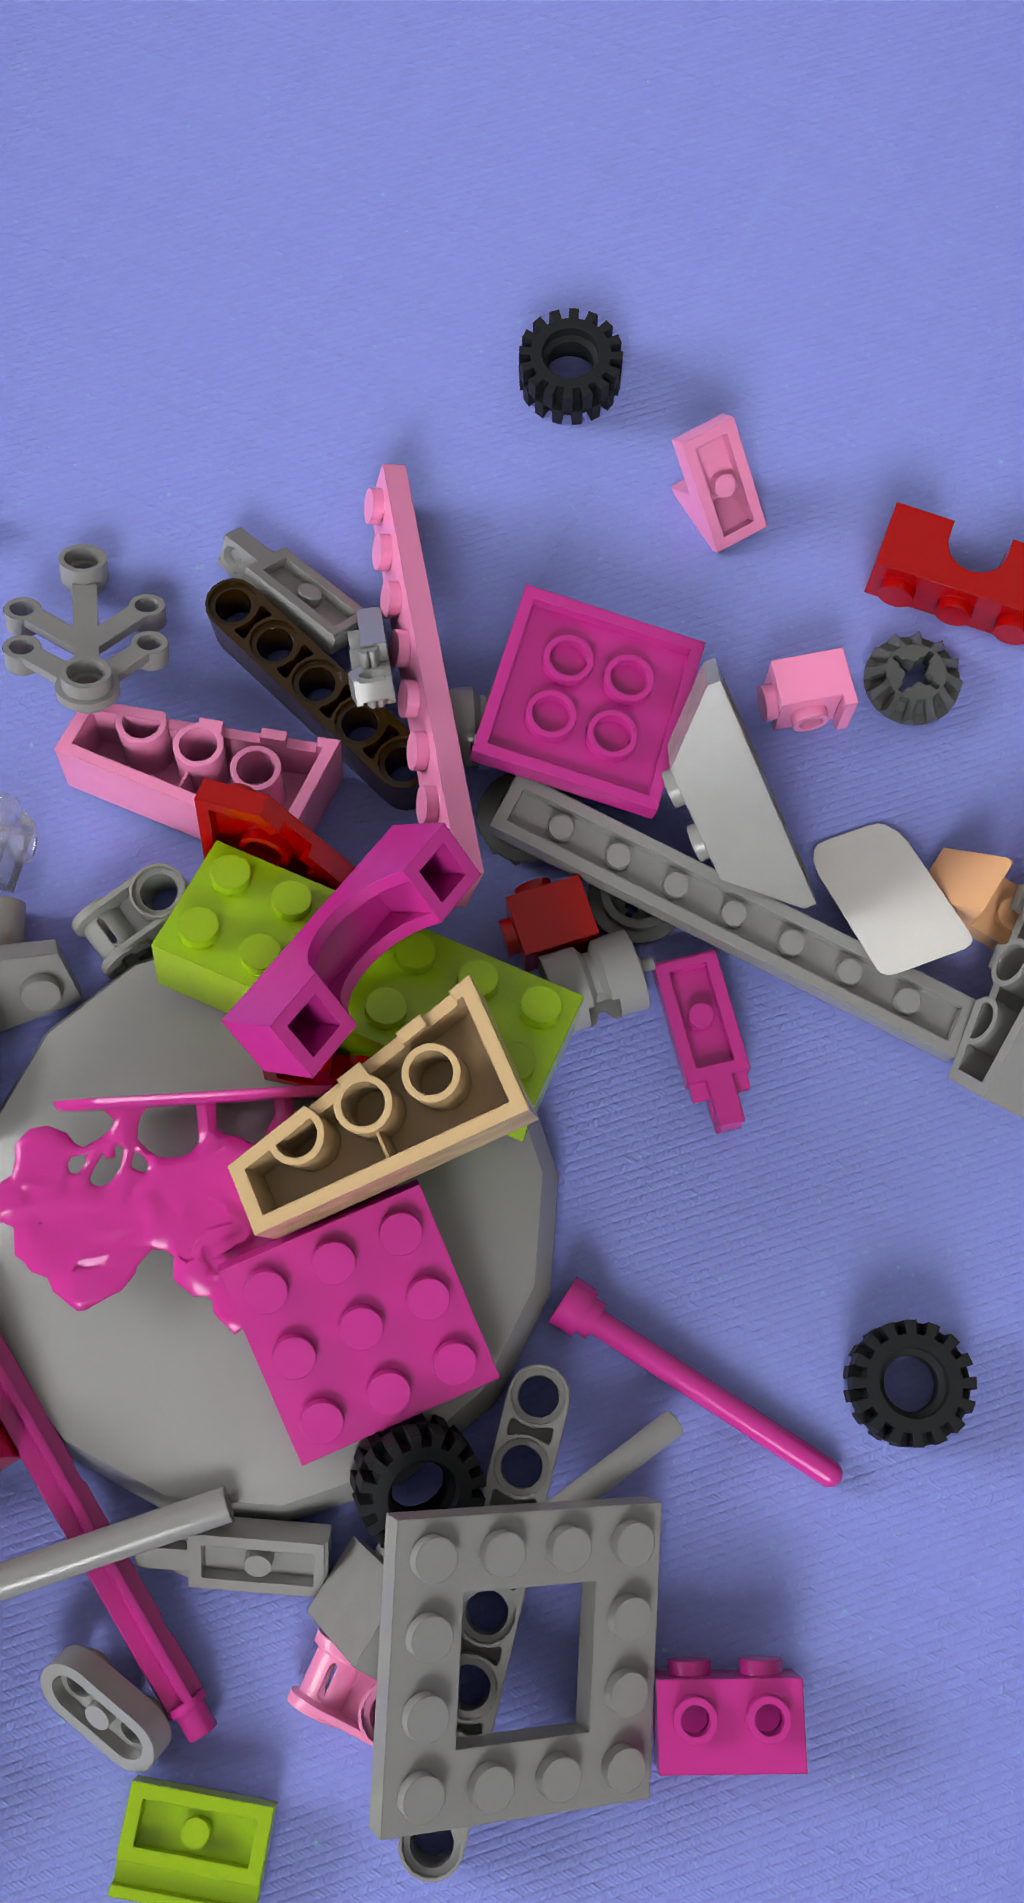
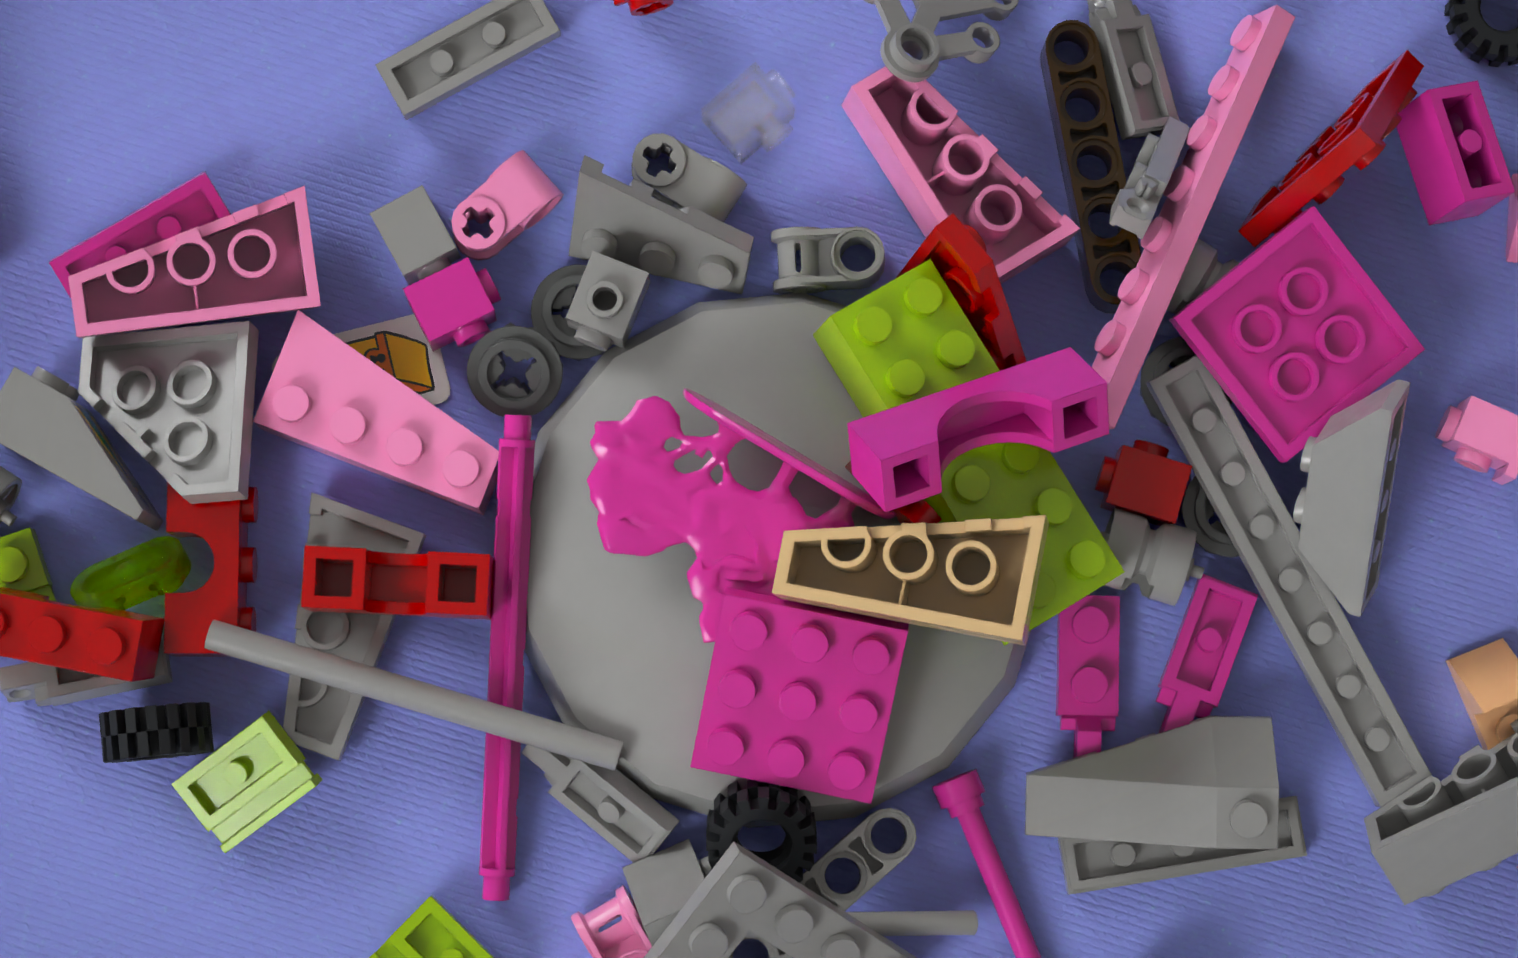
camera: 30 degrees right, 10 degrees up
(106, 1707) = (440, 834): light grey plate -> none
(515, 560) = (1333, 152): none -> red plate
(612, 487) = (1453, 153): none -> dark pink brick
(616, 1119) = (1088, 670): none -> dark pink hinge
(771, 1161) = (1179, 787): none -> light grey wedge
(806, 1217) = (1110, 864): none -> light grey tile
(889, 898) = (1424, 649): white sticker -> none

